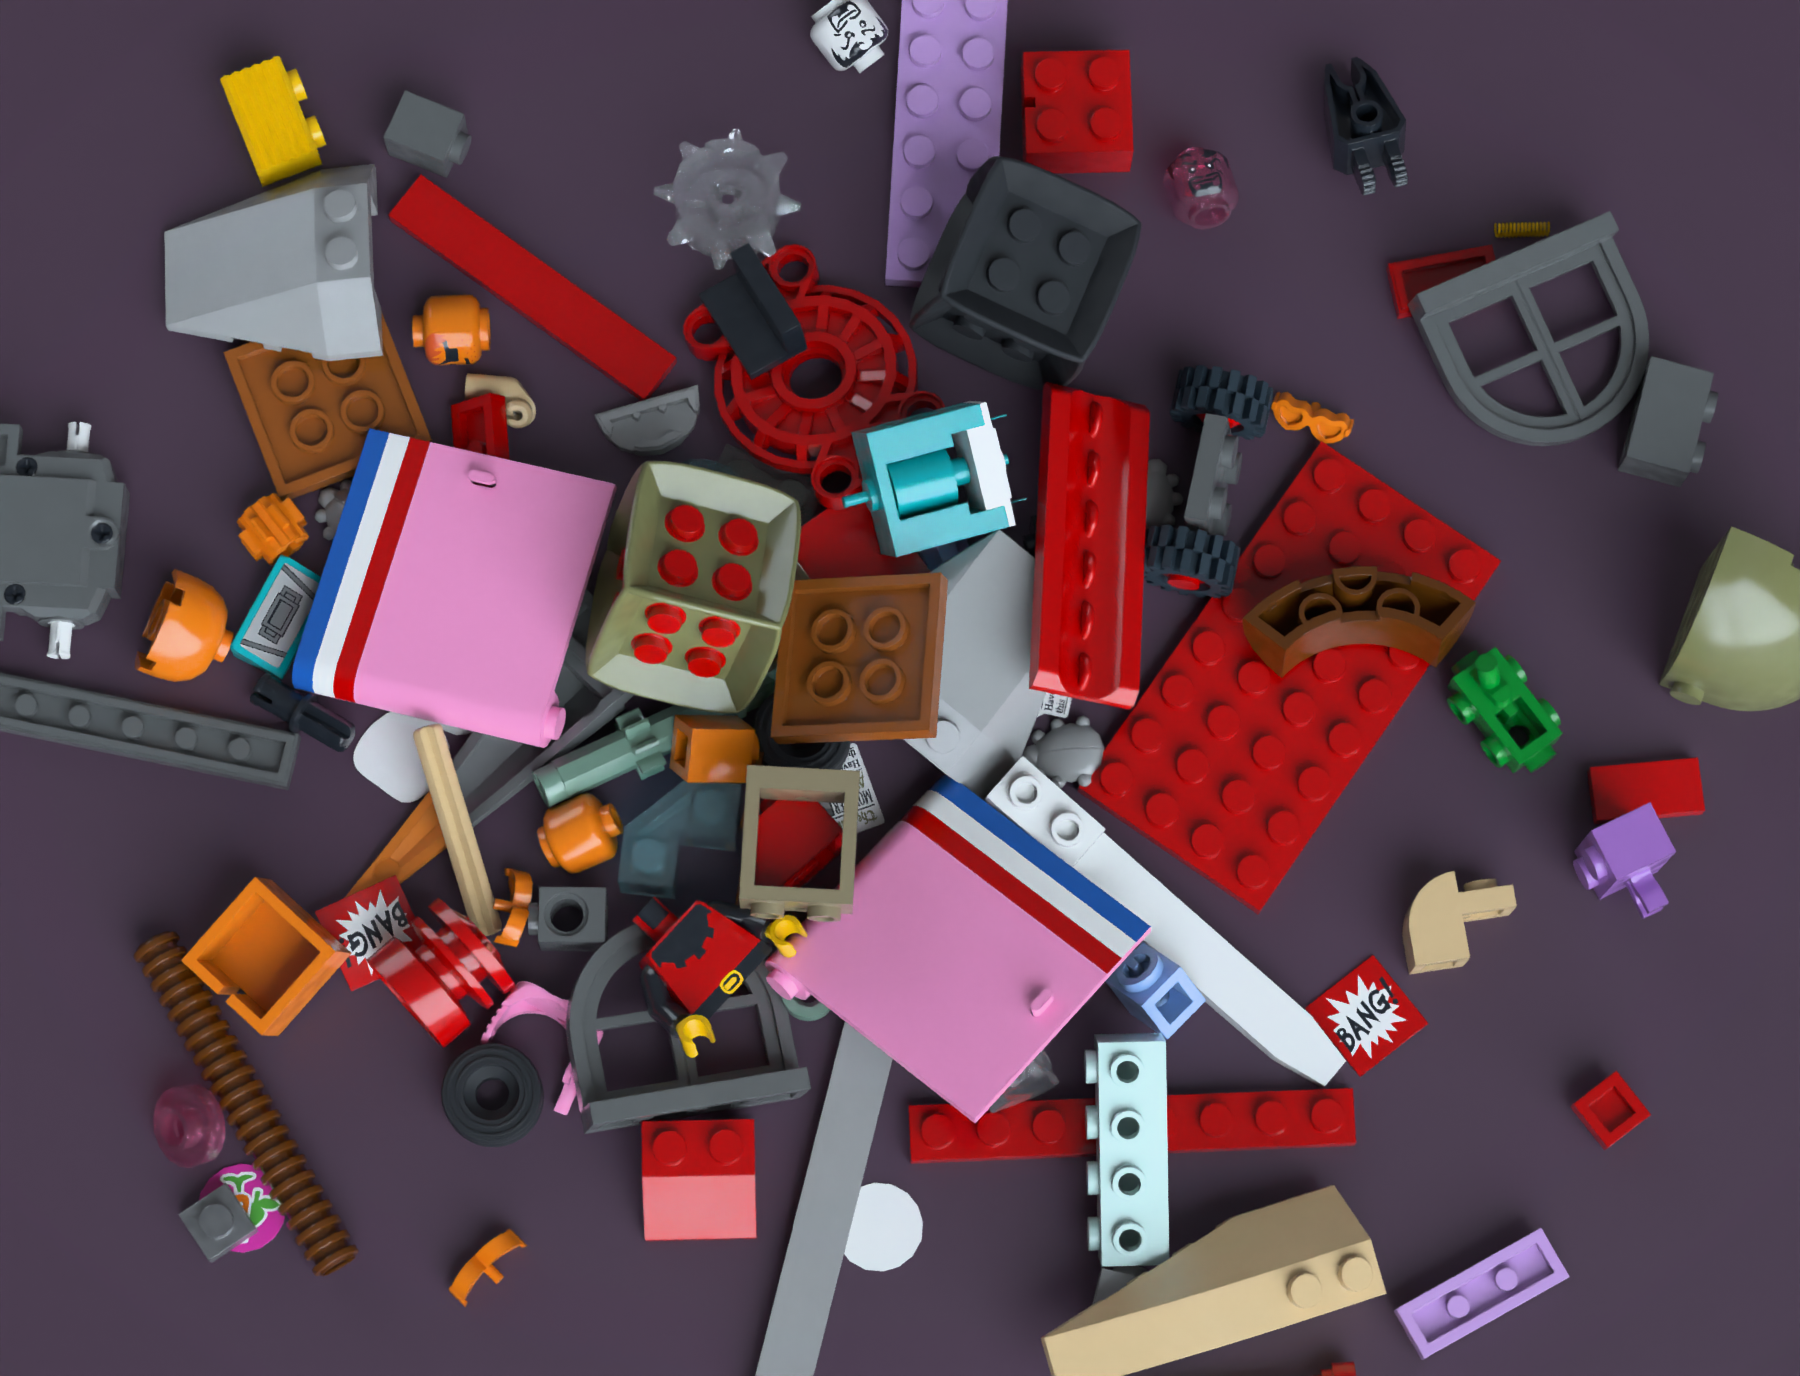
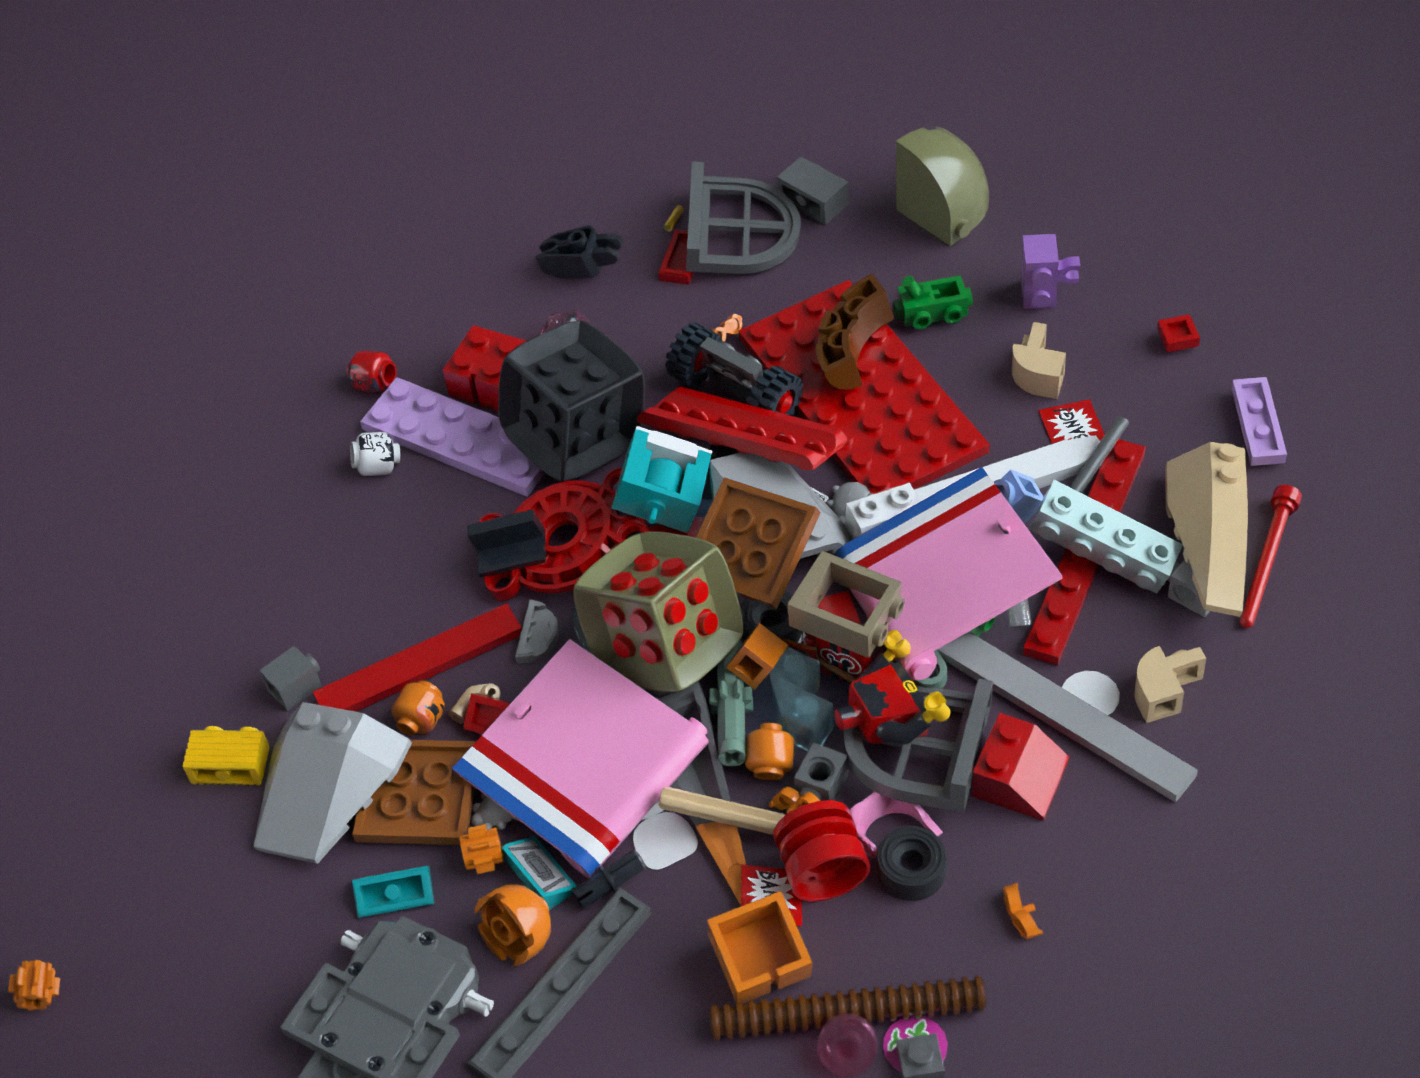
camera: 55 degrees left, 25 degrees down
(179, 444) = (393, 891): none -> teal slope
(720, 170) = (431, 539): clear brick -> none
(919, 1310) = (1160, 681): none -> tan brick
(1294, 1079) = (1099, 454): none -> dark grey bar
(1669, 785) = (1004, 267): red tile -> none

